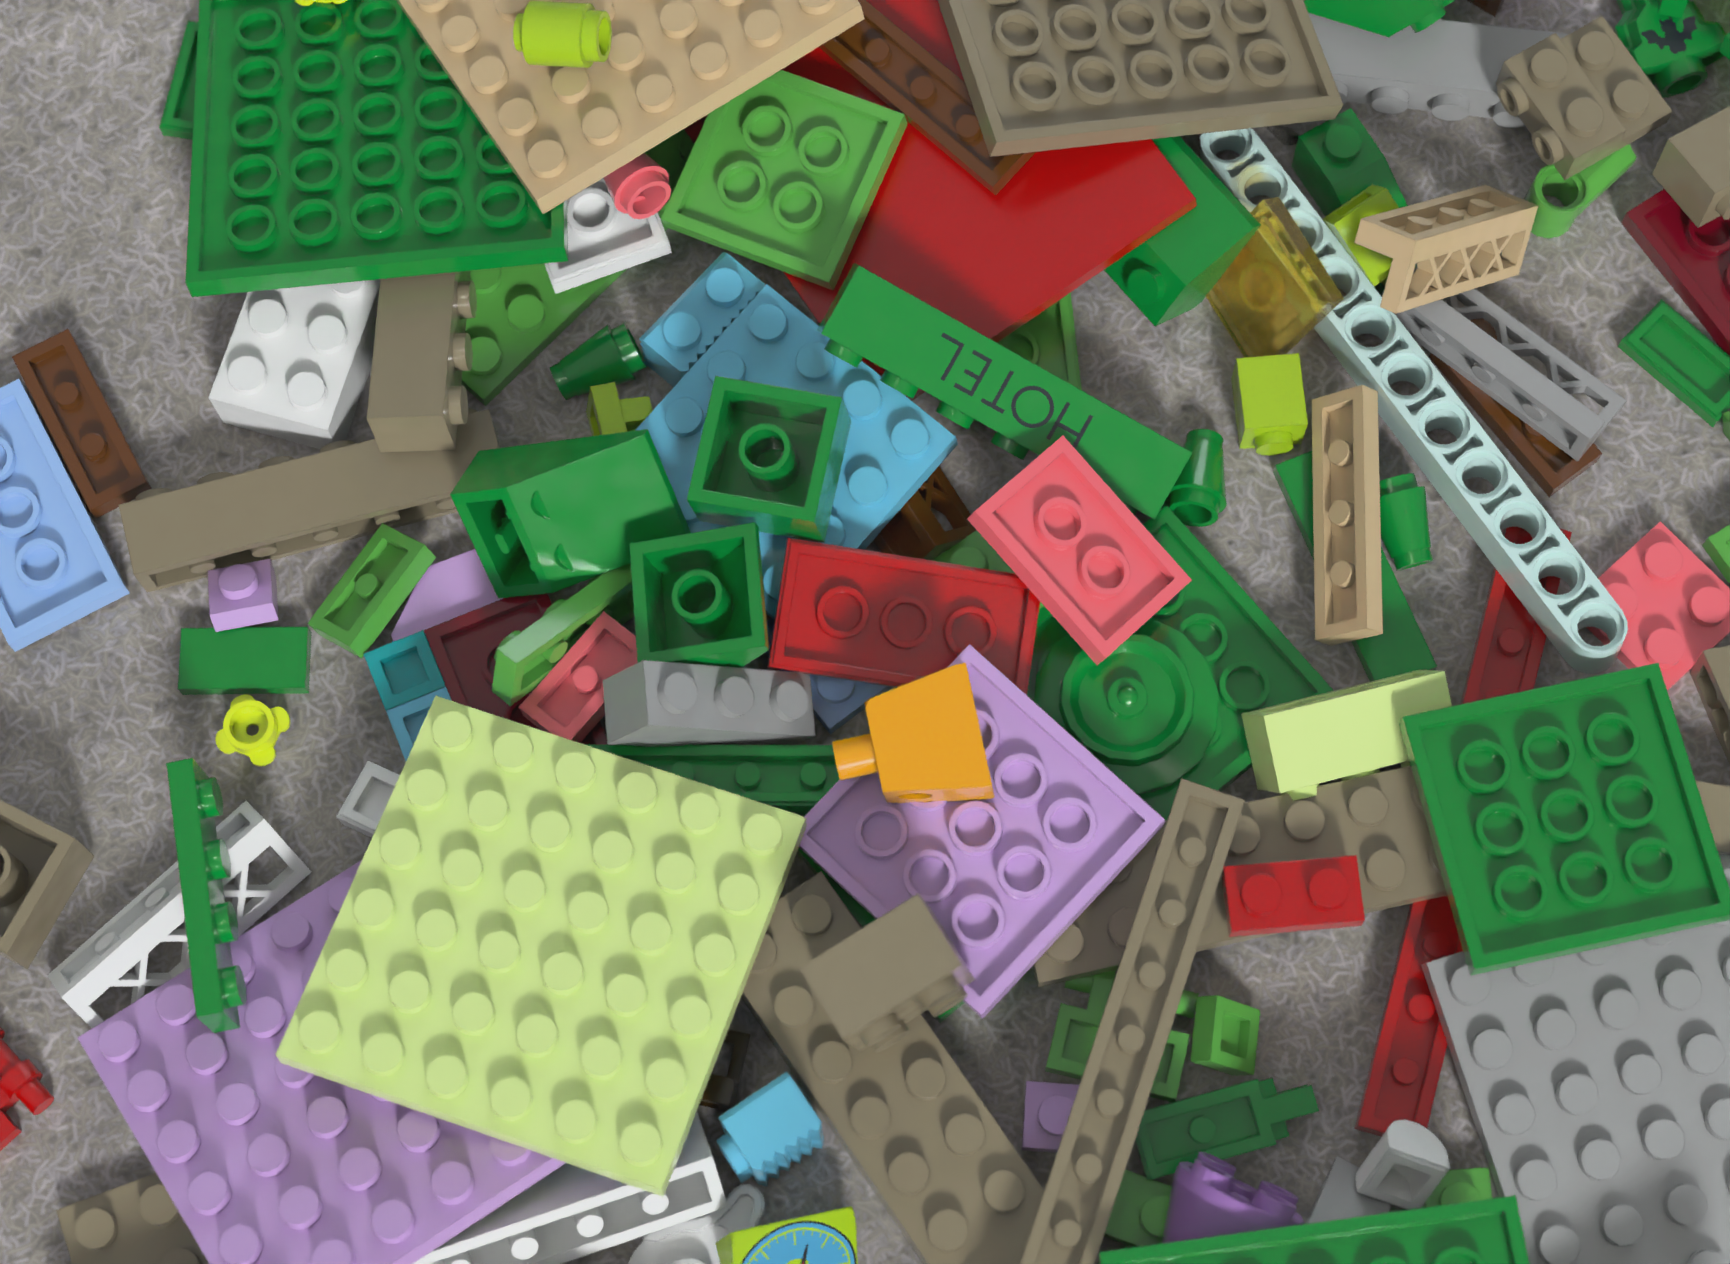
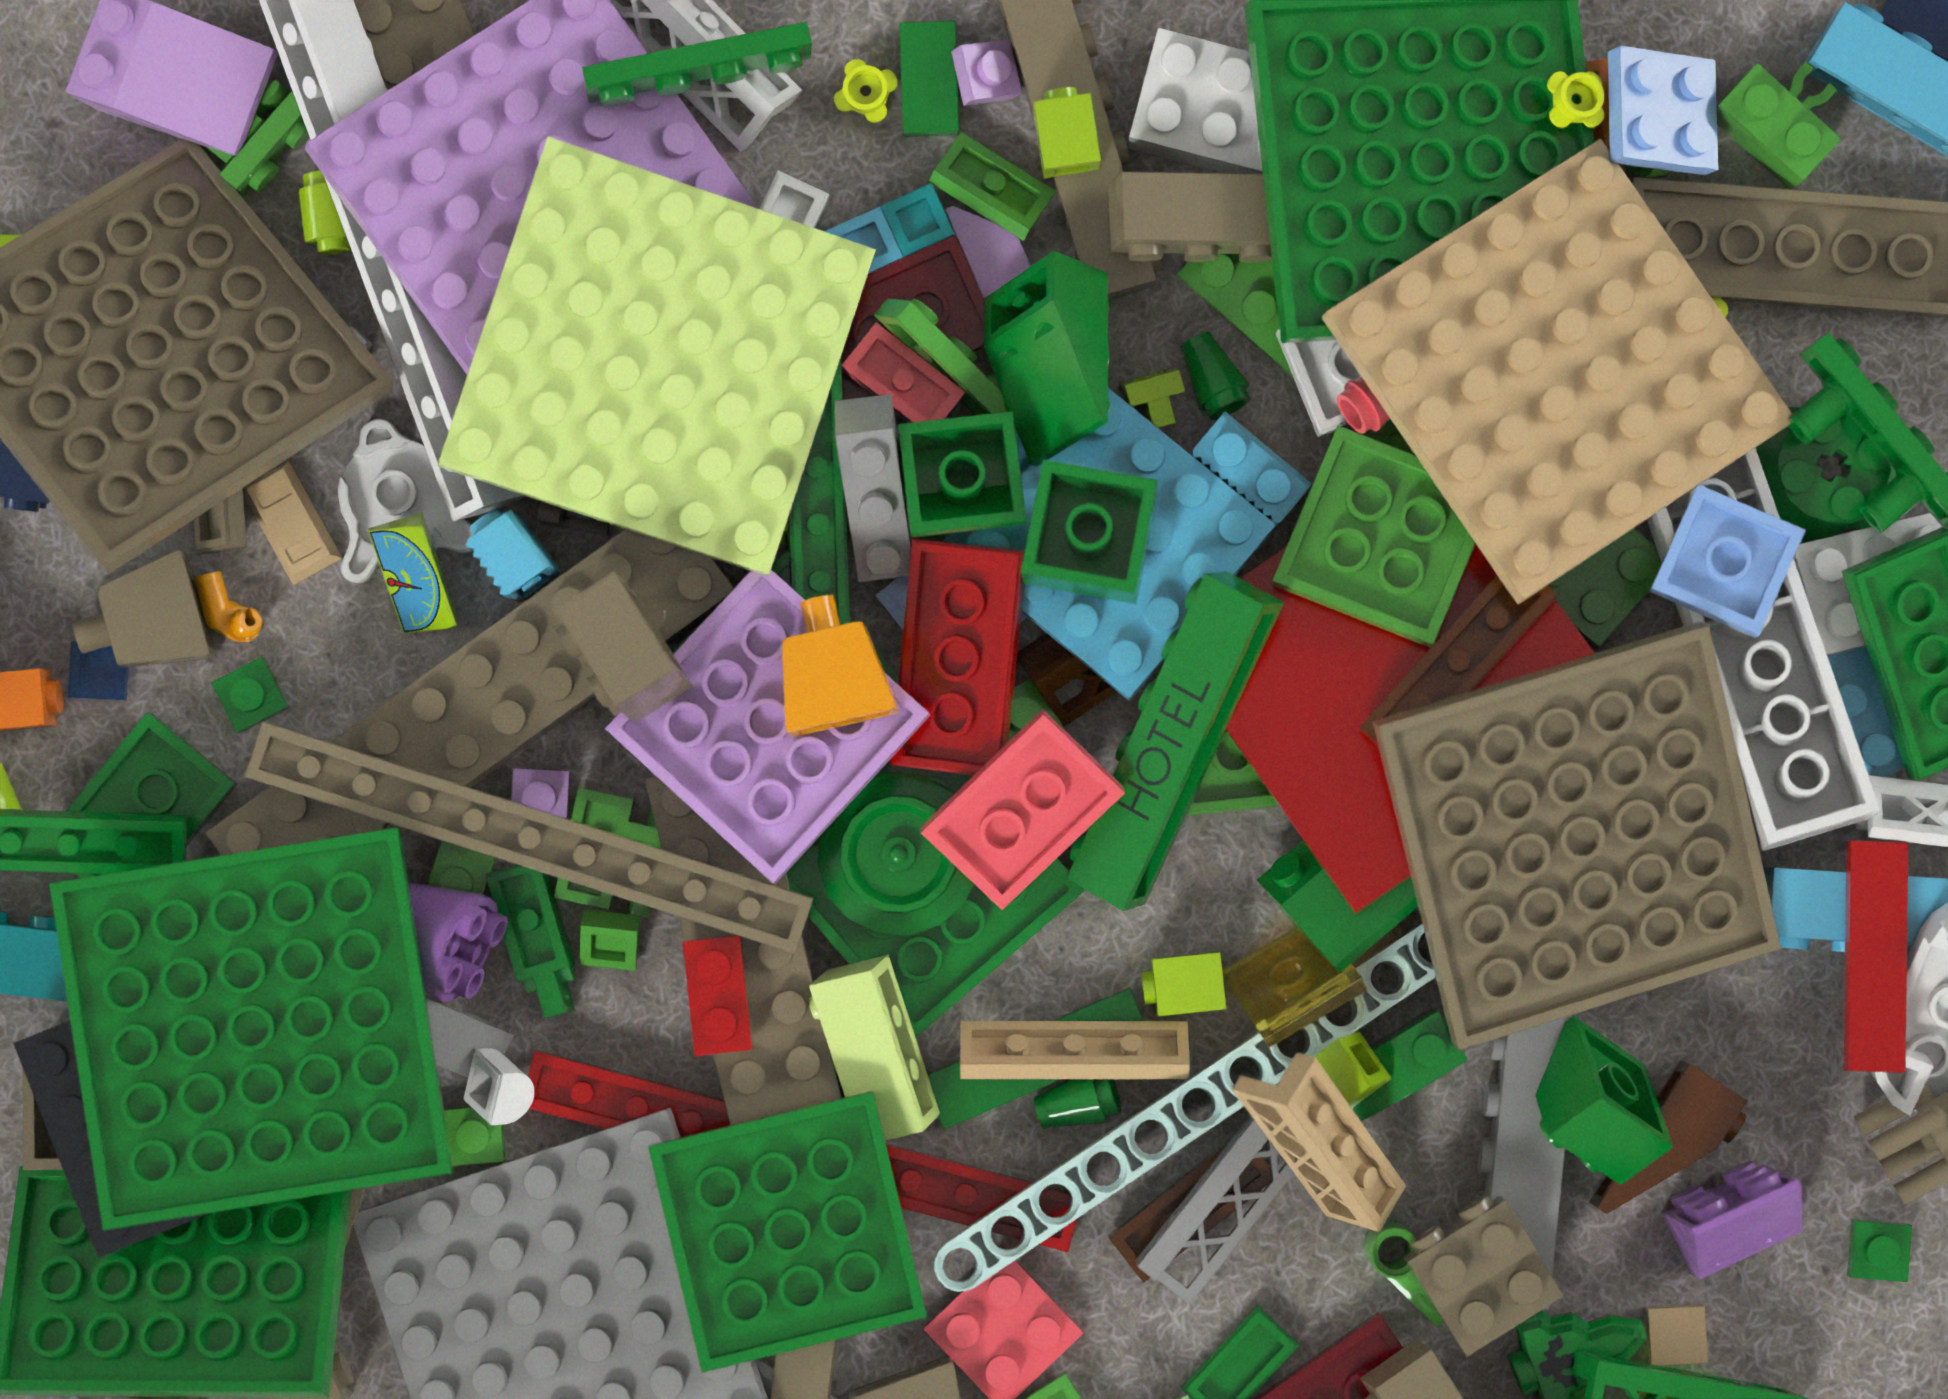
camera: 90 degrees right, 15 degrees up
(318, 489) = (1066, 133): none -> lime brick
(562, 34) = (1485, 326): lime brick -> none
(1200, 481) = (1106, 924): green cone -> none

